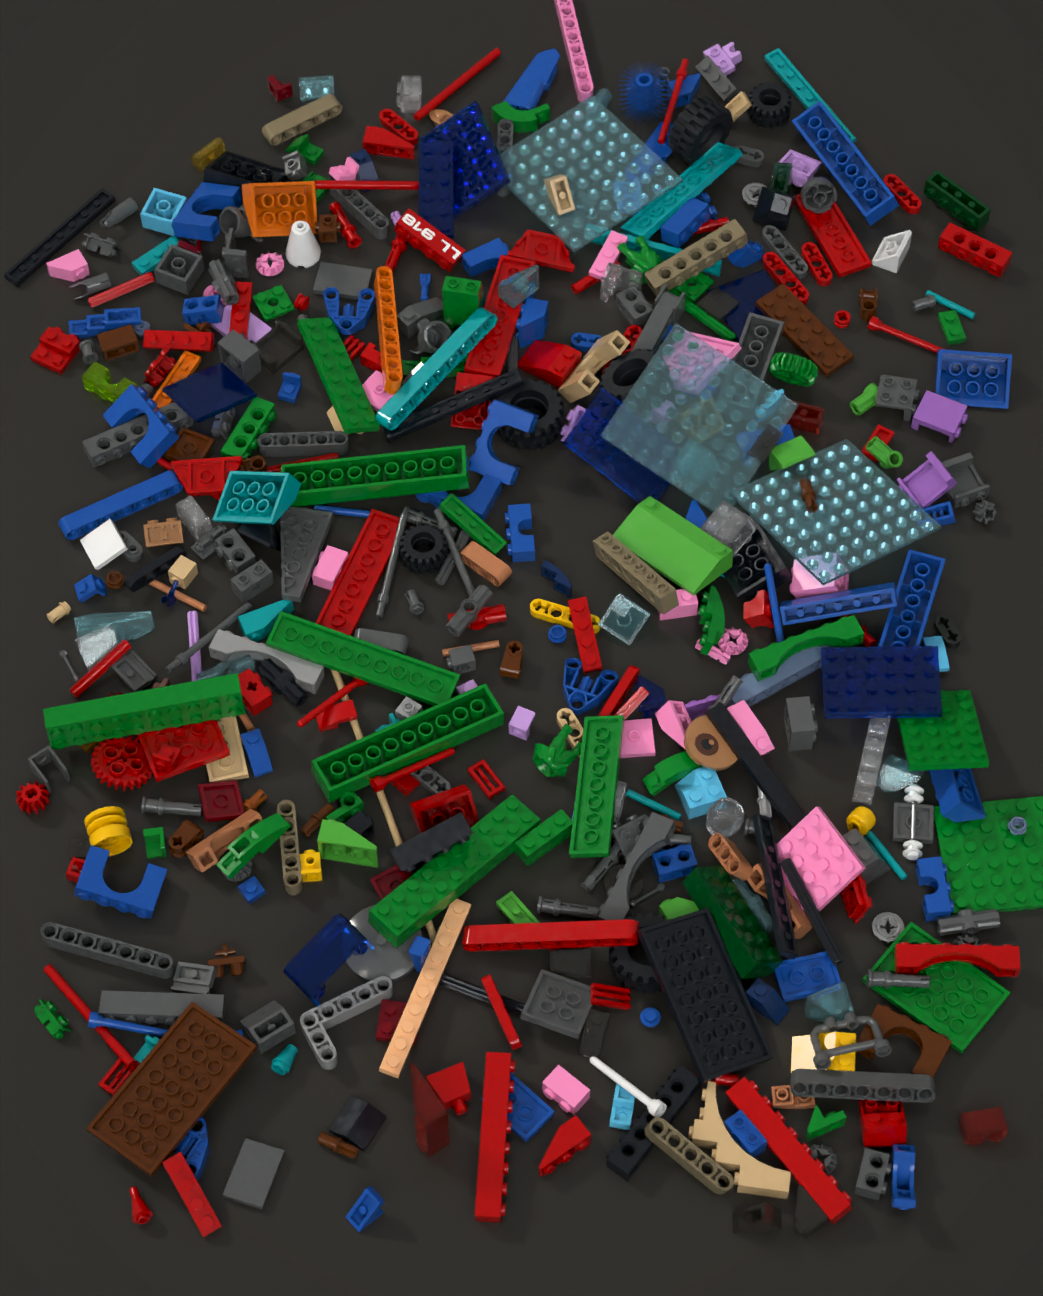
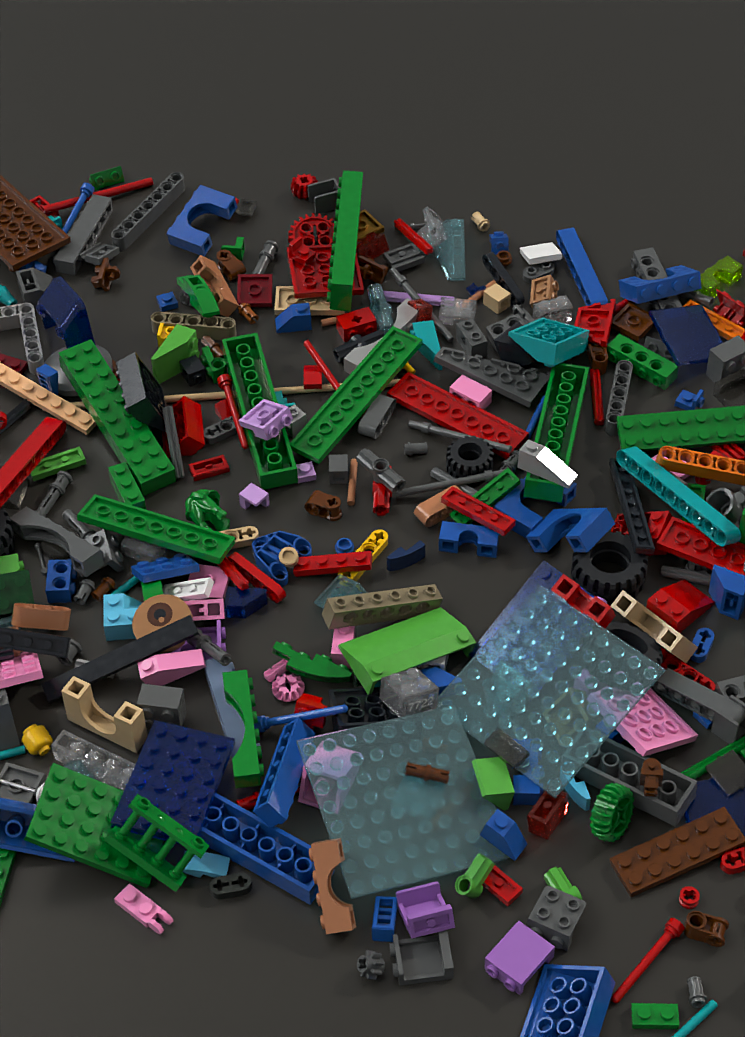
camera: 105 degrees right, 10 degrees down
(108, 829) = (250, 217): yellow wheel -> none
(213, 601) = (456, 310): none -> clear brick
(229, 627) = (424, 311): none -> clear red bracket
(437, 716) = (267, 419): none -> lavender plate
(448, 460) = (543, 463): none -> light grey slope
(473, 806) = (173, 441): none -> dark grey axle
(497, 521) = (478, 511): none -> red plate
(592, 668) = (288, 556): none -> tan tile
(614, 395) = (576, 597): none -> red arch
(641, 769) = (165, 568): none -> blue plate
(660, 738) = (190, 589): none -> white plate
(725, 817) = (85, 626): clear piece -> none
(768, 333) = (651, 776): none -> reddish brown hips
(827, 761) = (125, 728): none -> tan arch
(836, 444) = (504, 835): none -> blue slope
(923, 541) = (336, 914): none -> nougat arch
(948, 673) = (145, 857): none -> green fence
(991, 690) = (142, 908): none -> bright pink hinge

